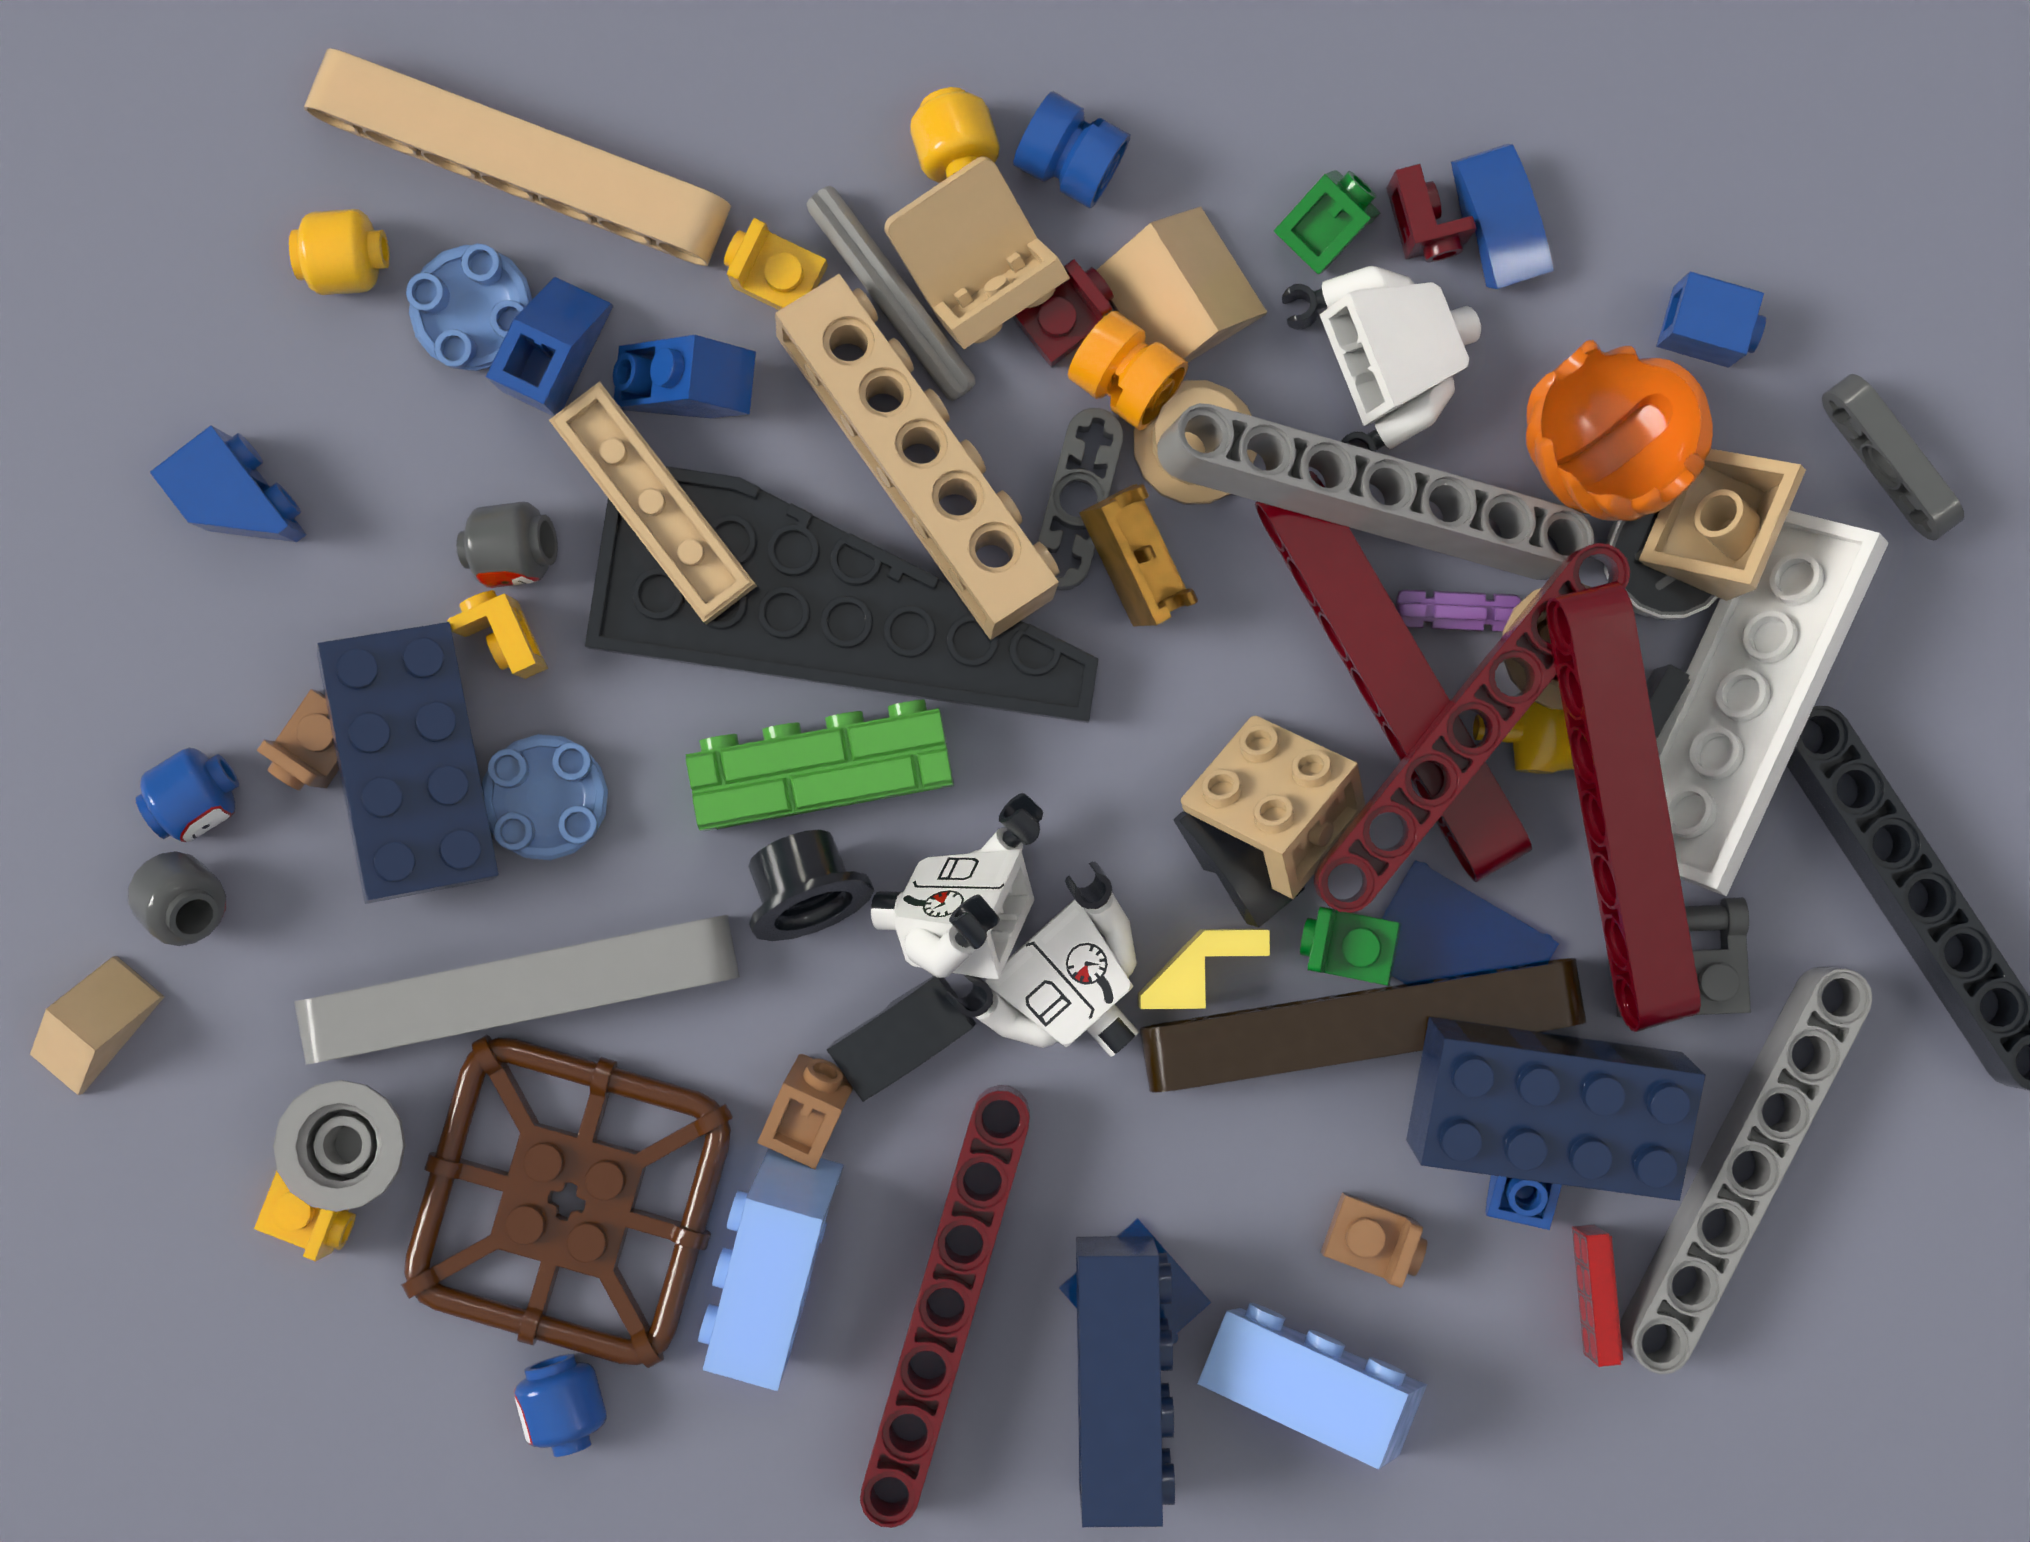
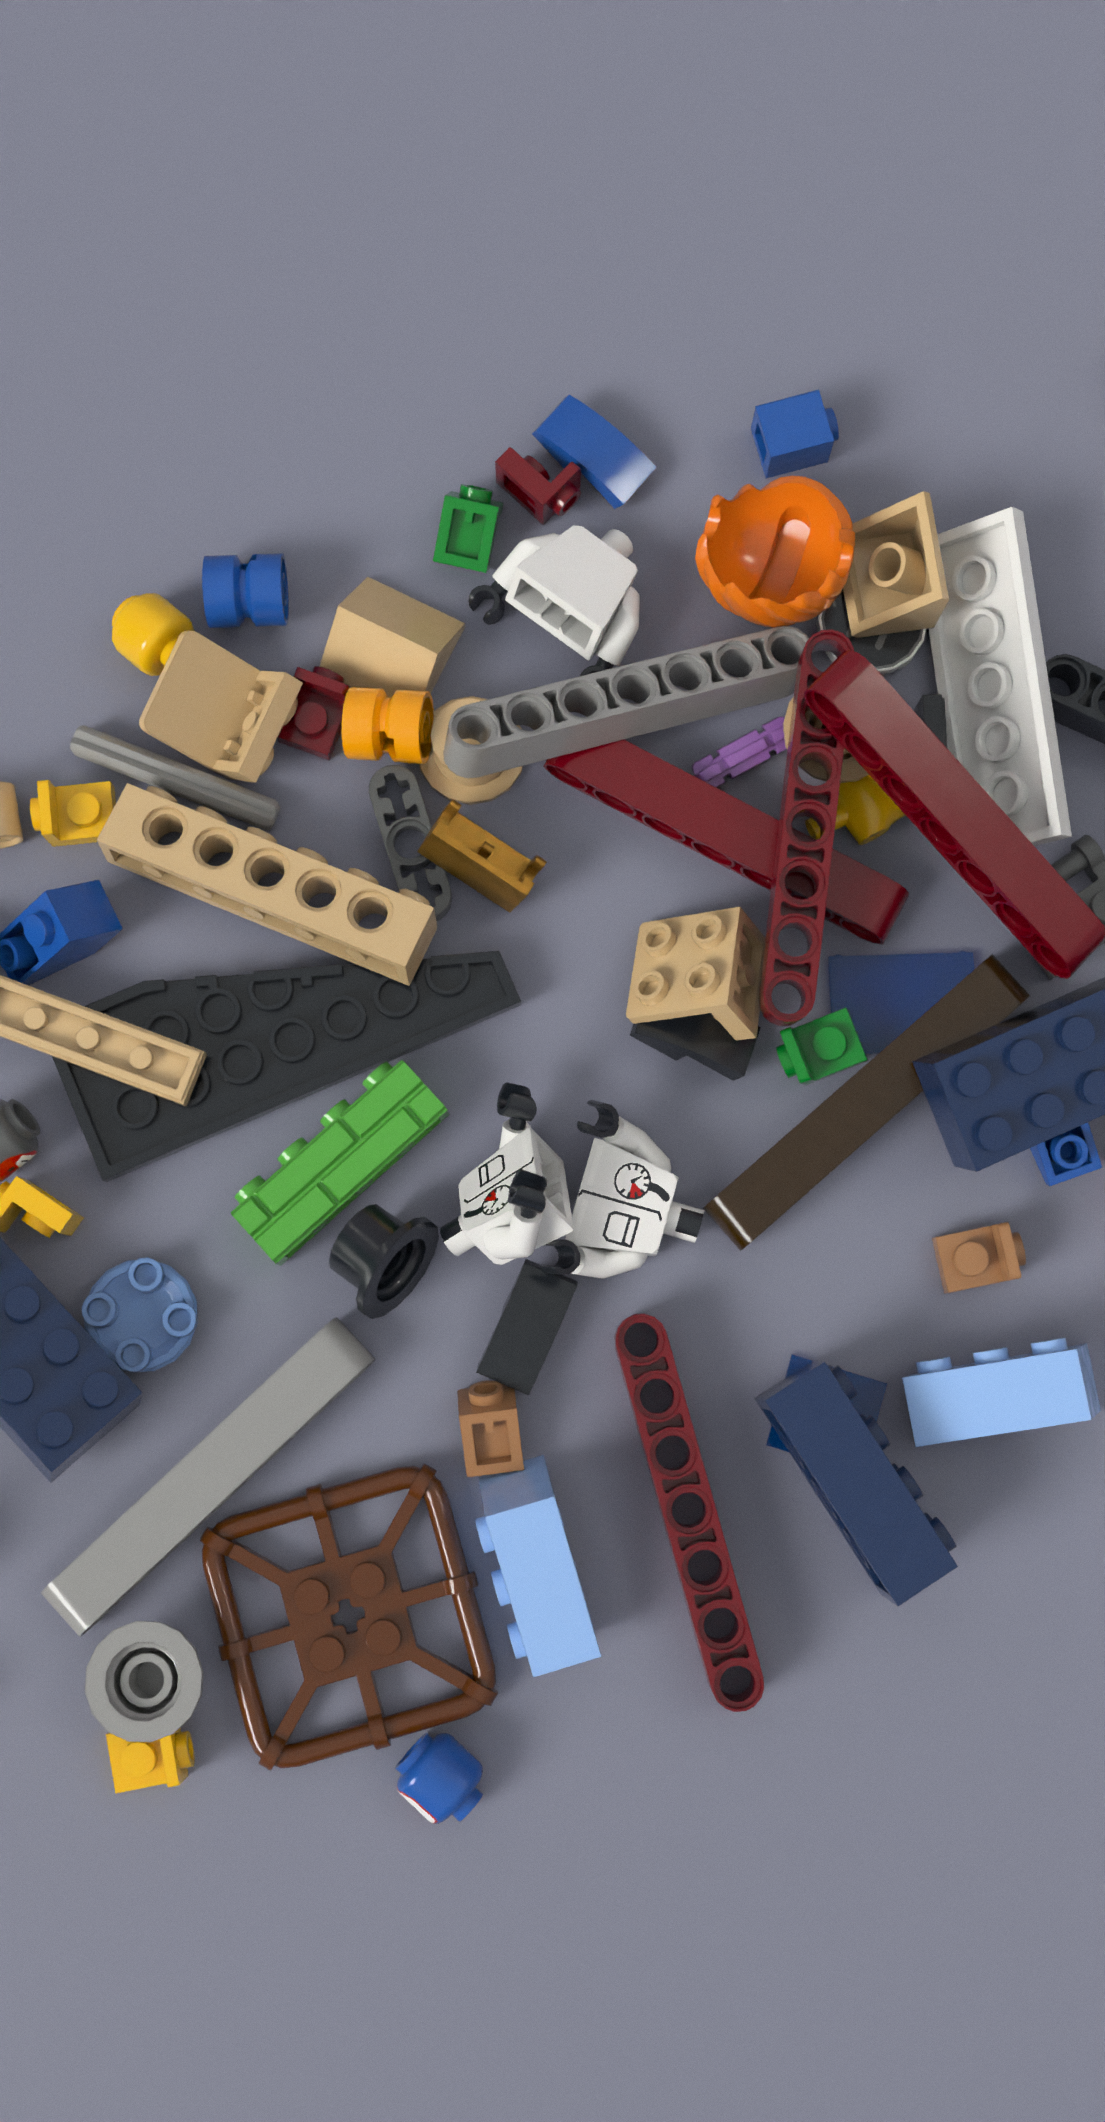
camera: 40 degrees left, 5 degrees down
(1182, 979) = (712, 1148): light yellow slope -> none
(1892, 457) = (986, 452): dark grey beam -> none

